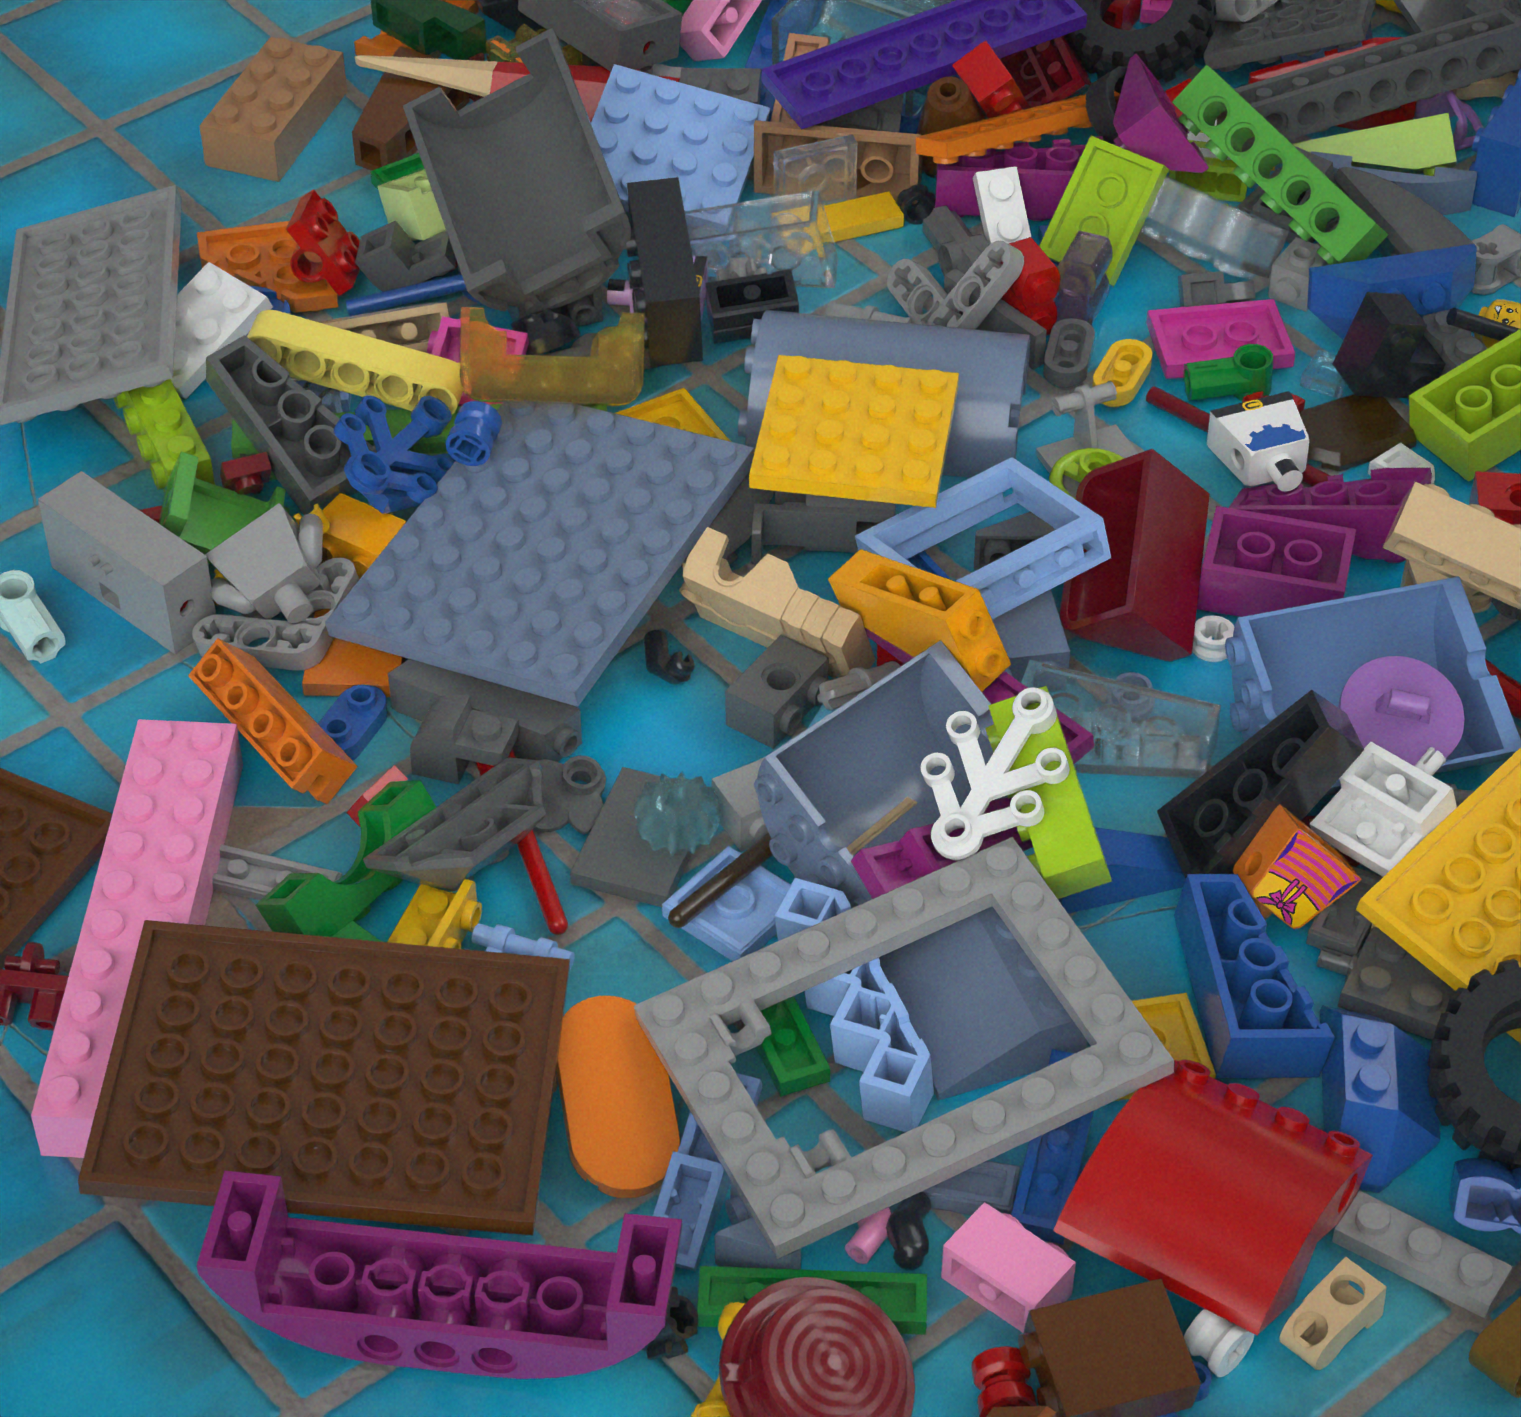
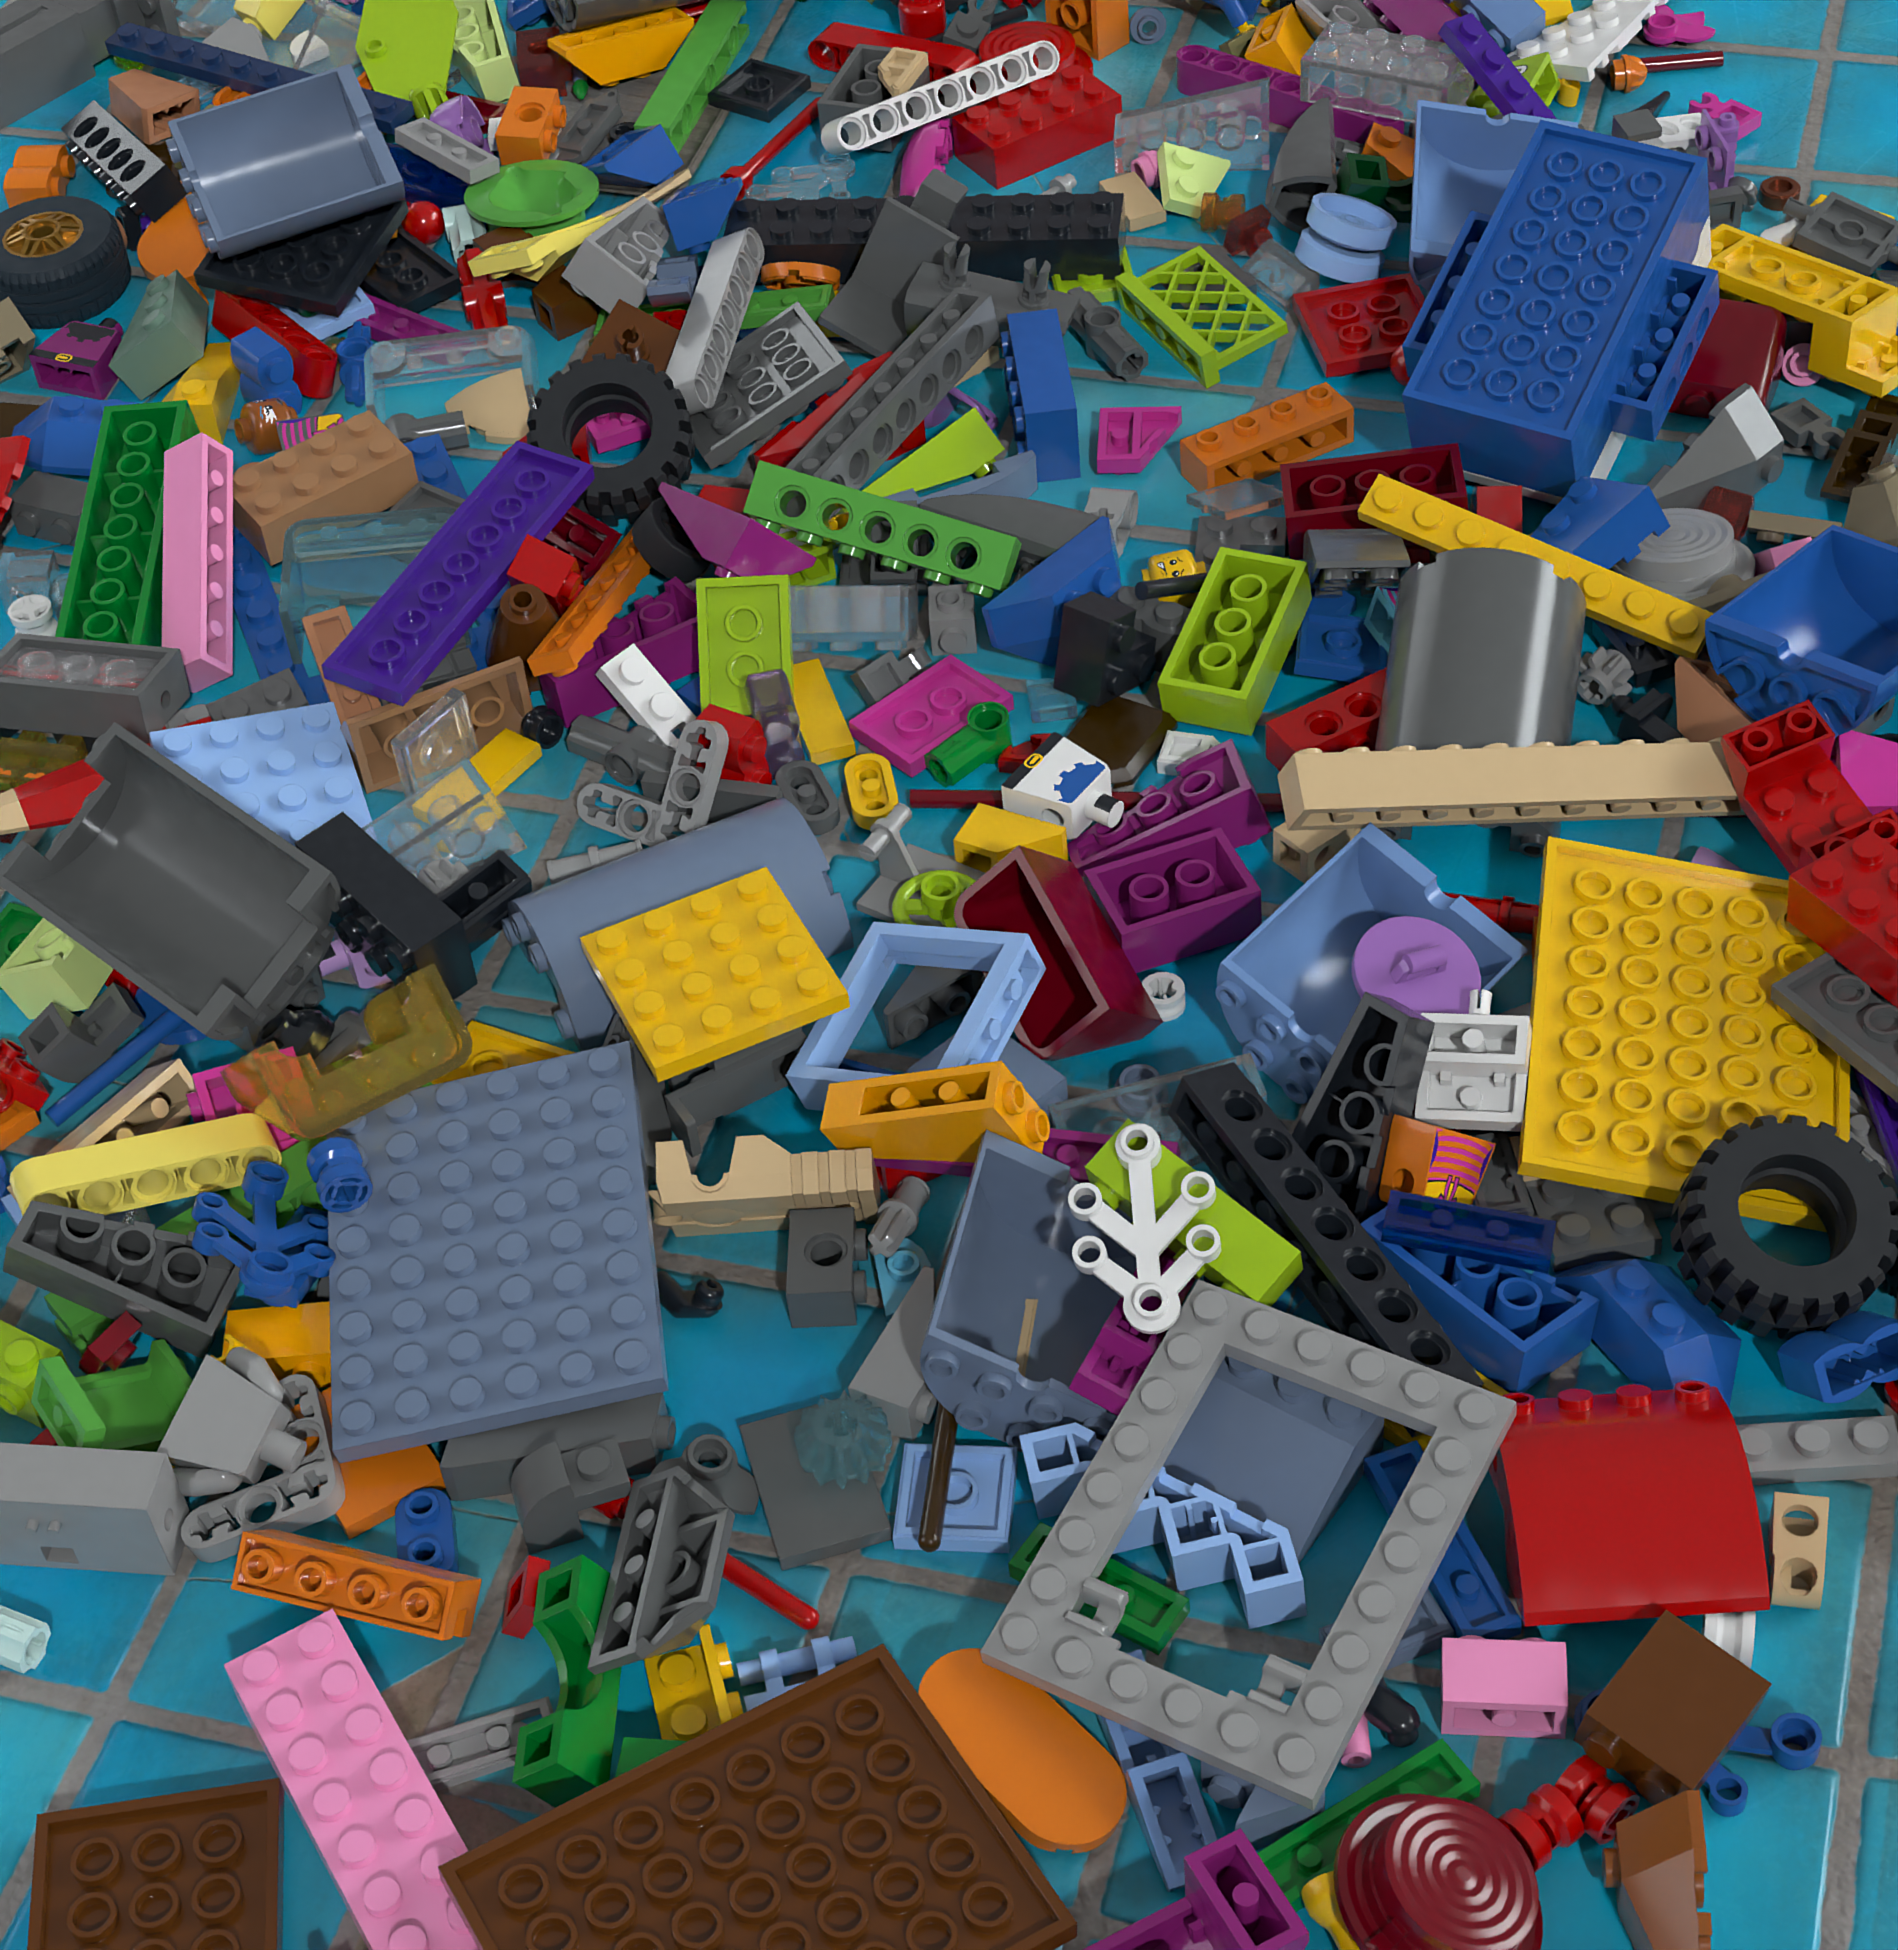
camera: 30 degrees left, 0 degrees up
(956, 1377) = (1544, 1824): none -> red wheel
(1134, 294) = (821, 720): none -> yellow tile
(1148, 857) = (1280, 1185): none -> black brick
(1197, 458) = (995, 832): none -> yellow slope
(1271, 927) = (1469, 1231): none -> clear blue tile

